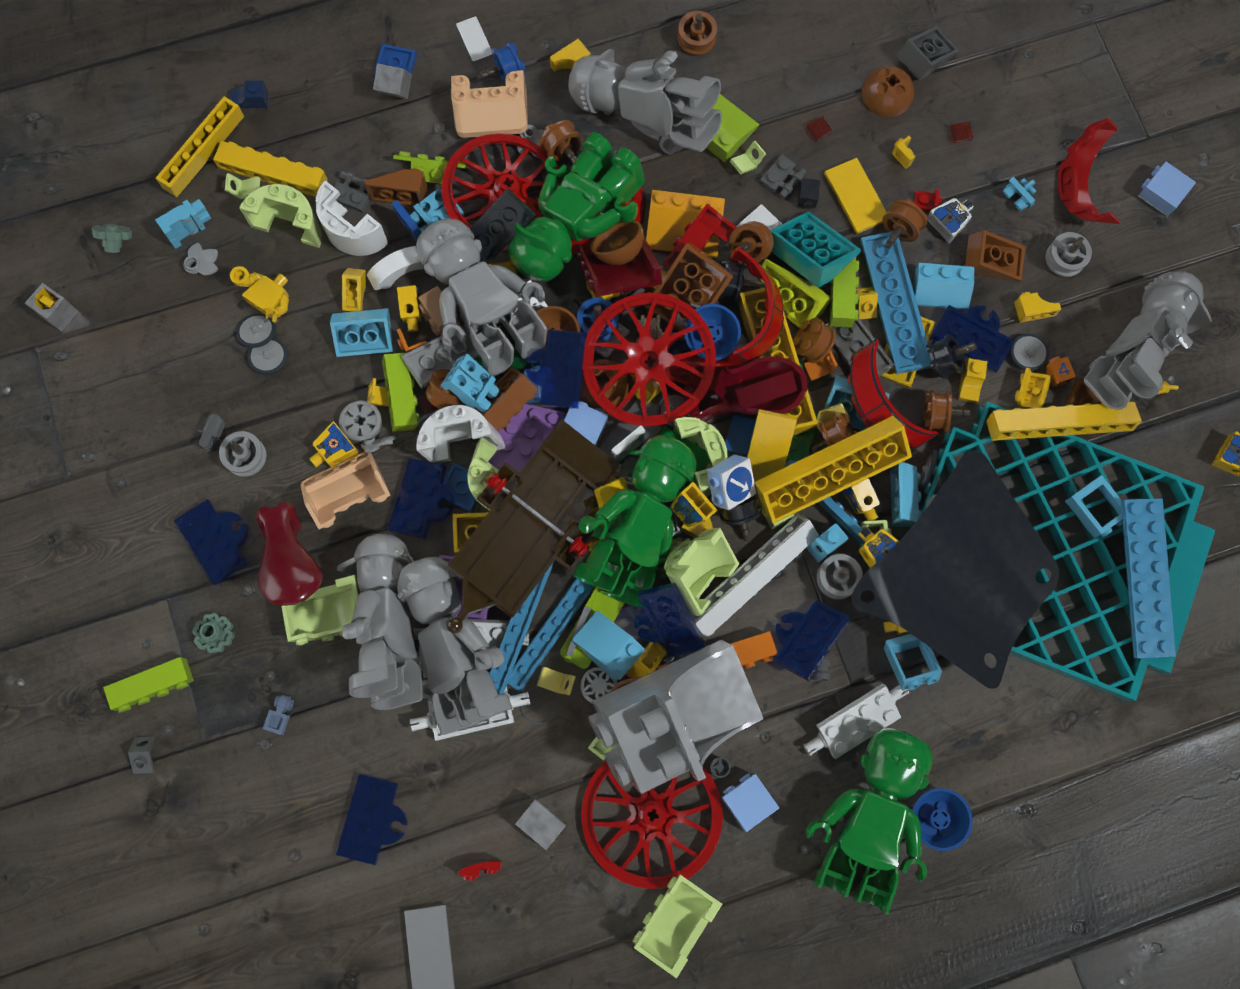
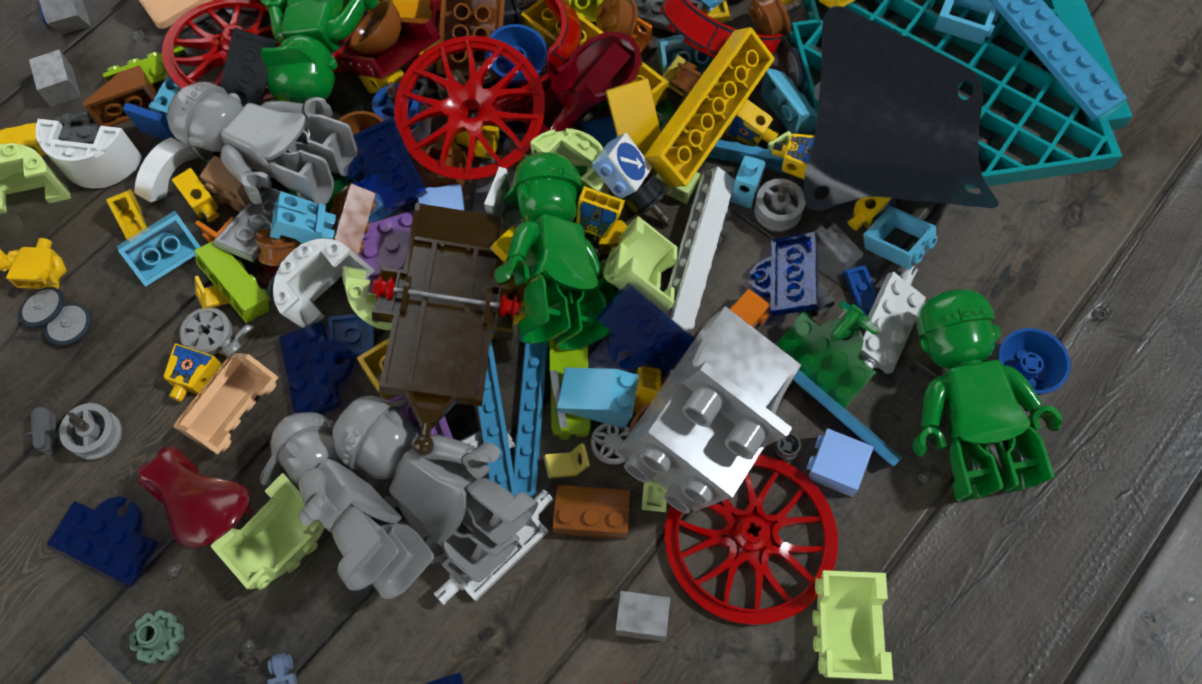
camera: 25 degrees left, 10 degrees down
(357, 136) = (54, 78): none -> flat silver piece
(552, 727) = (591, 512): none -> dark orange slope
(772, 754) = (847, 419): none -> dark azure tile
(795, 717) = (828, 356): none -> green plate
(857, 681) = (861, 288): none -> blue tile
(863, 636) = (839, 245): none -> clear bracket

